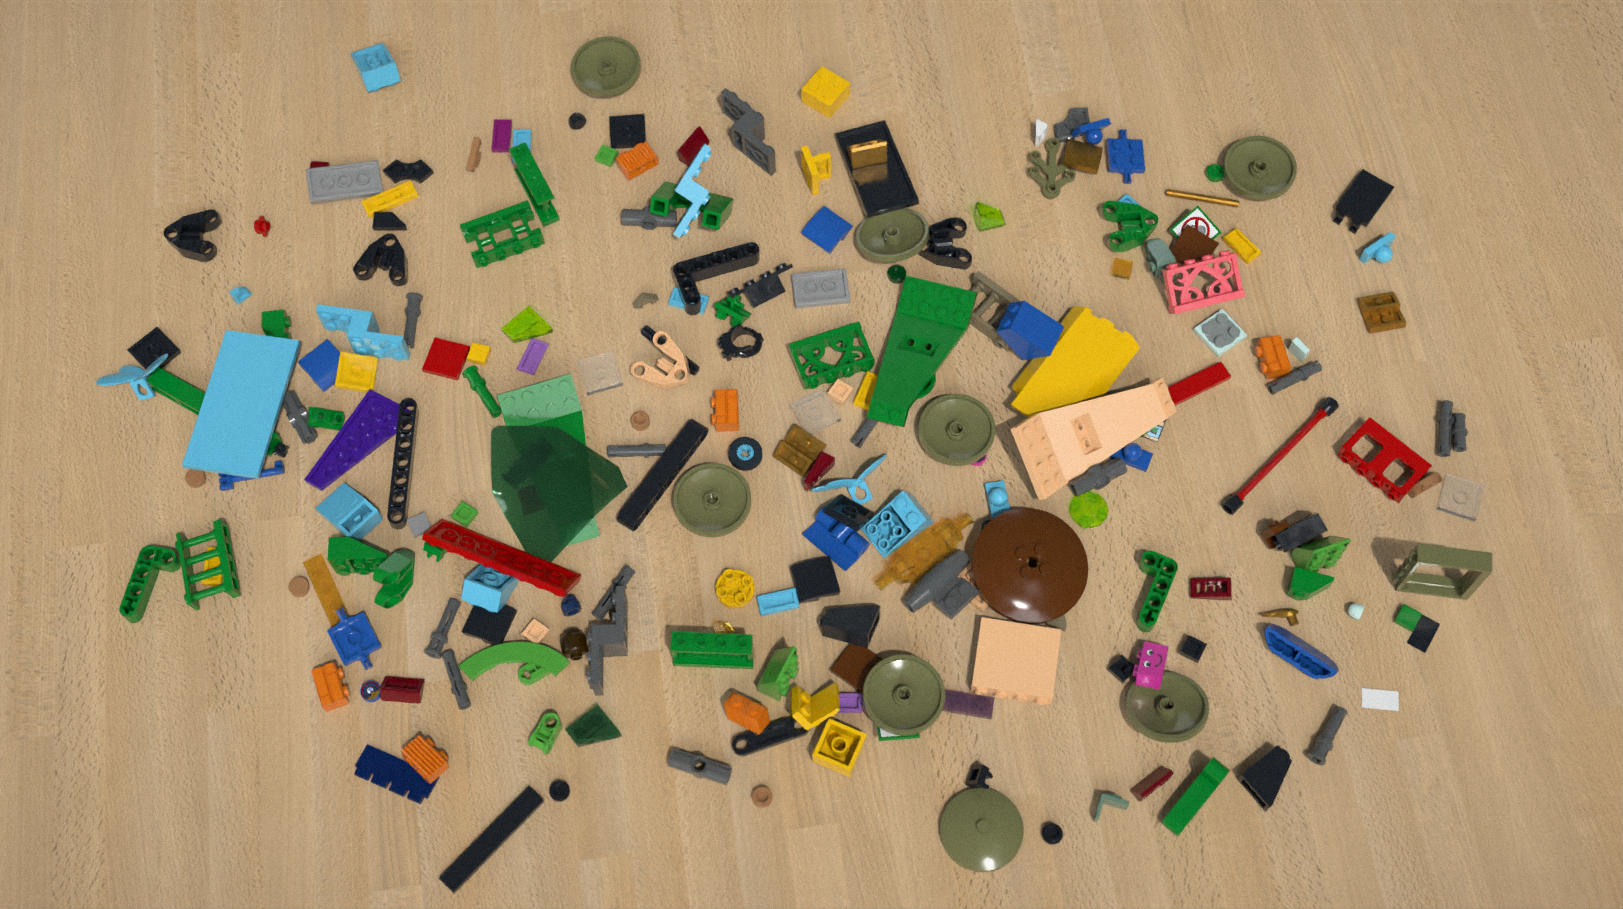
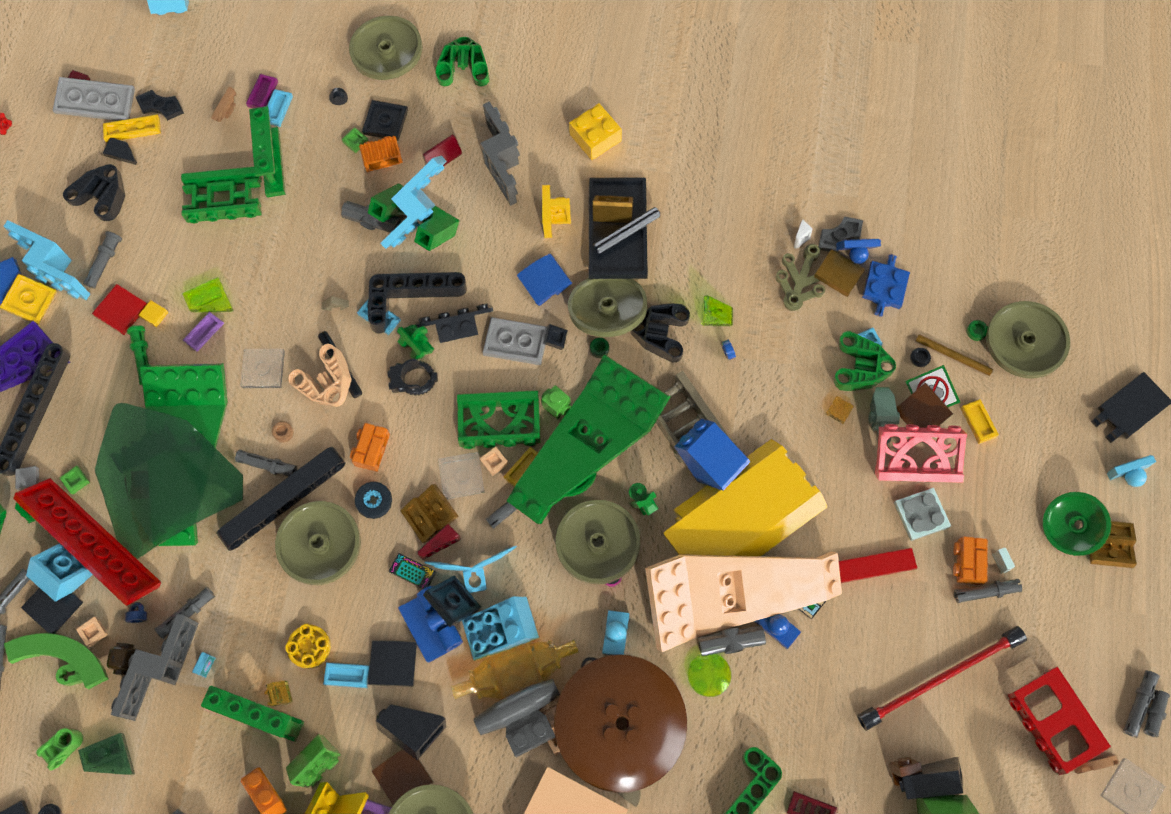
camera: 20 degrees right, 5 degrees up
(648, 628) = (203, 664): none -> medium azure tile
(682, 49) = (455, 49): none -> green connector
(802, 502) = (412, 571): none -> tile
(855, 274) = (555, 337): none -> black tile
(877, 327) = (556, 402): none -> bright green brick
(886, 167) = (626, 230): none -> axle
(984, 386) = (642, 499): none -> green hips
(1010, 244) = (728, 349): none -> blue tile
(1175, 207) = (920, 357): none -> black plate
(1338, 295) = (1061, 518): none -> green dish

